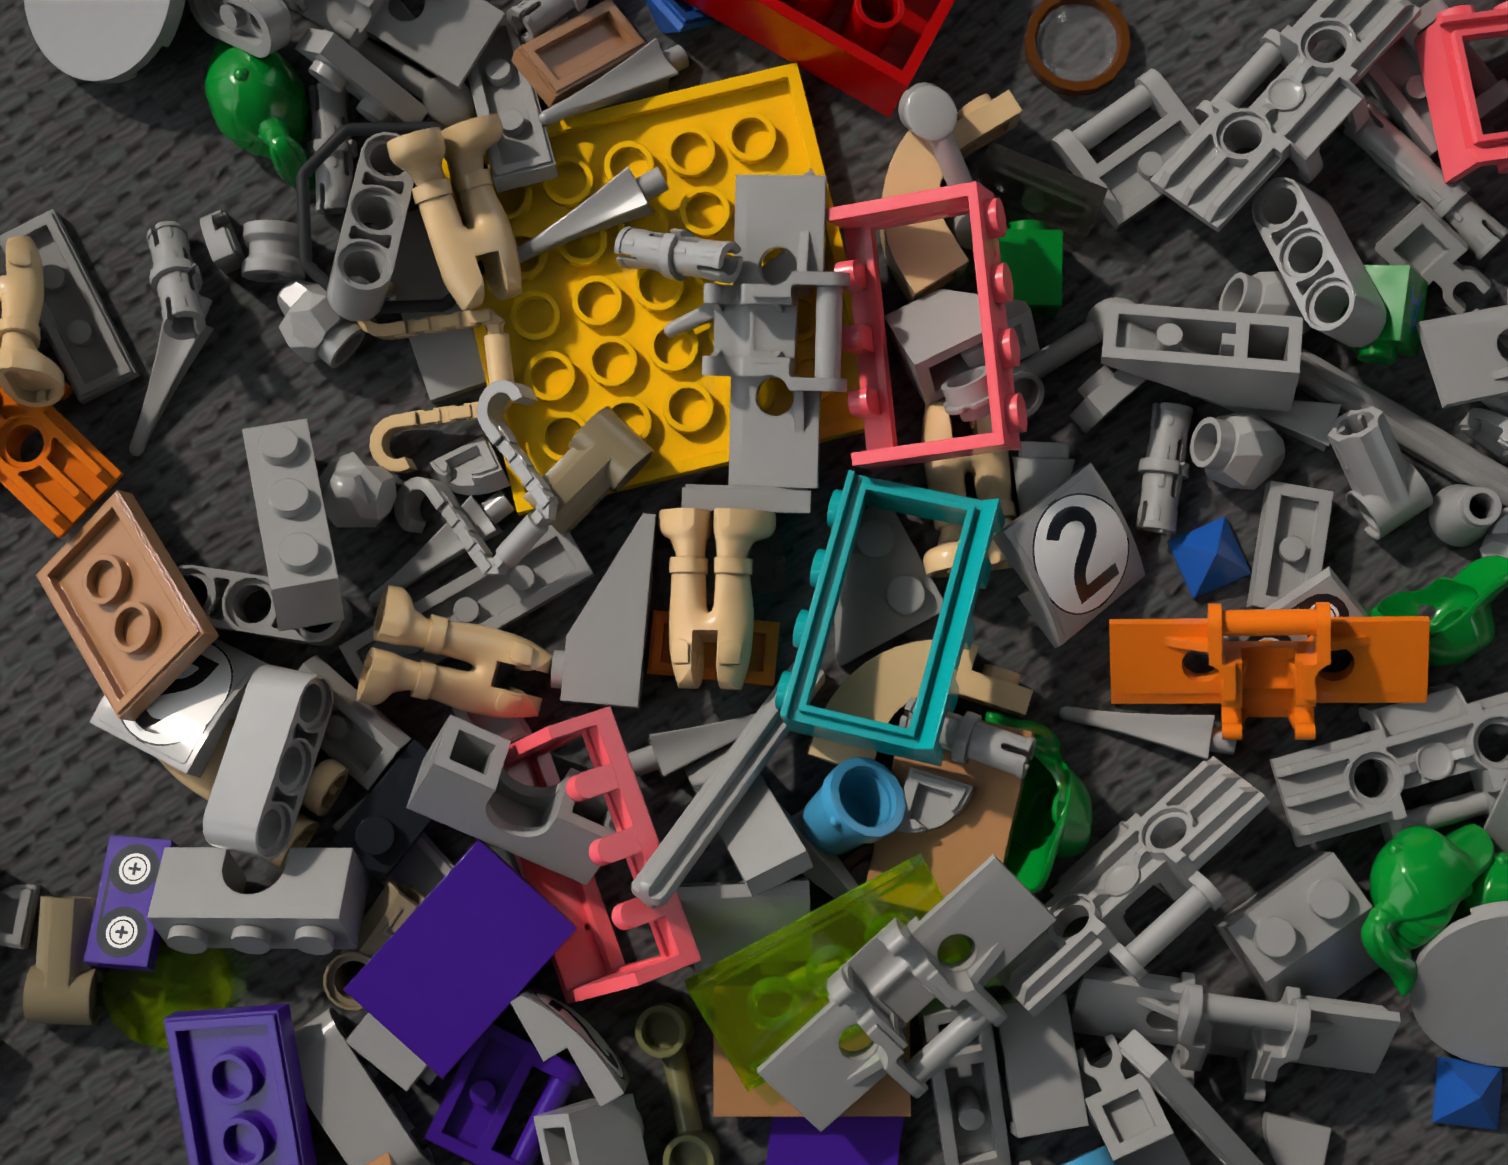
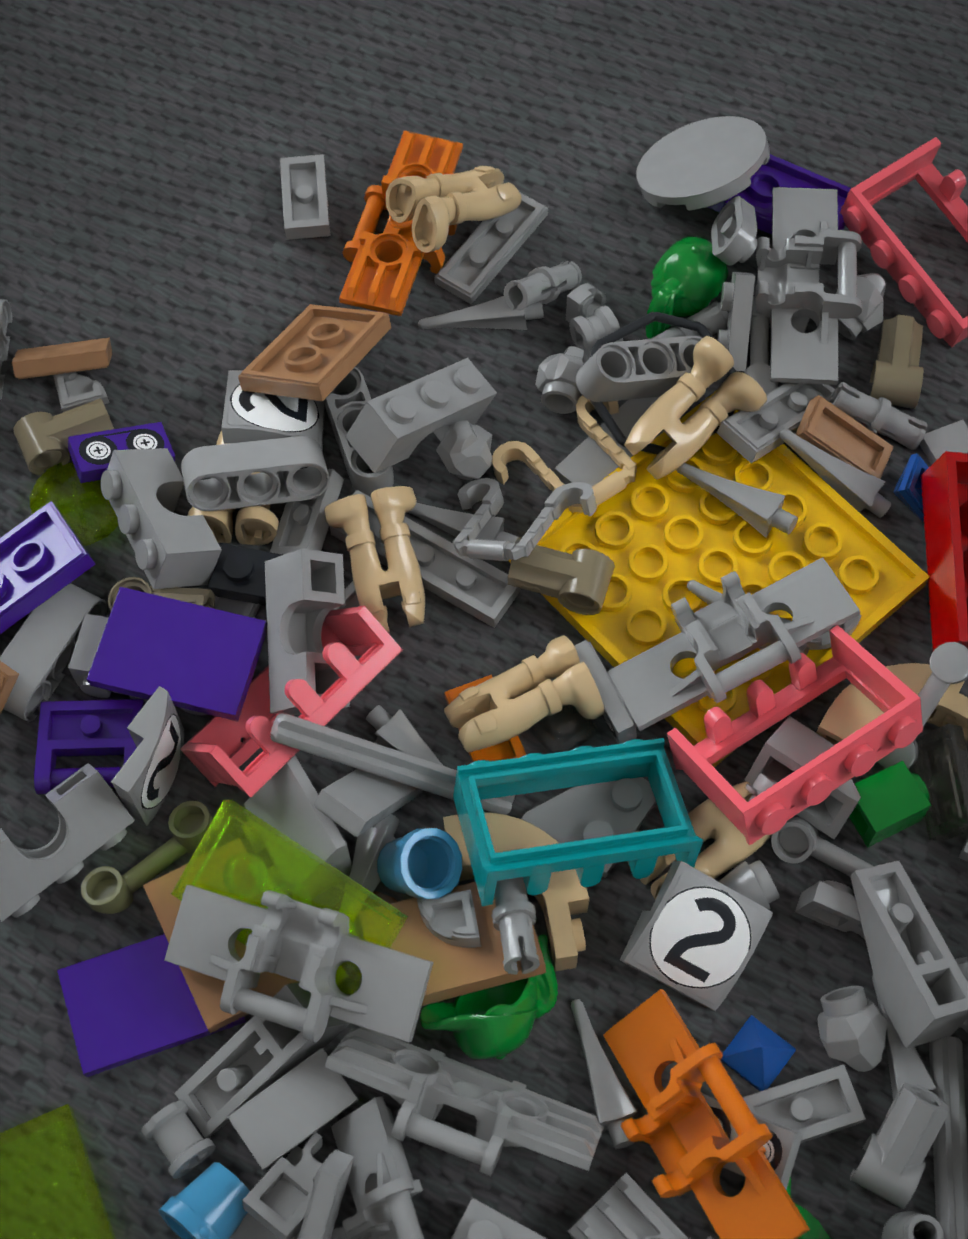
camera: 65 degrees right, 20 degrees down
(471, 469) = (520, 512): light grey tile -> none
(609, 638) = (462, 650): light grey slope -> none
(678, 254) = (745, 553): light grey pin -> none
(1164, 468) = (804, 981): light grey pin -> none

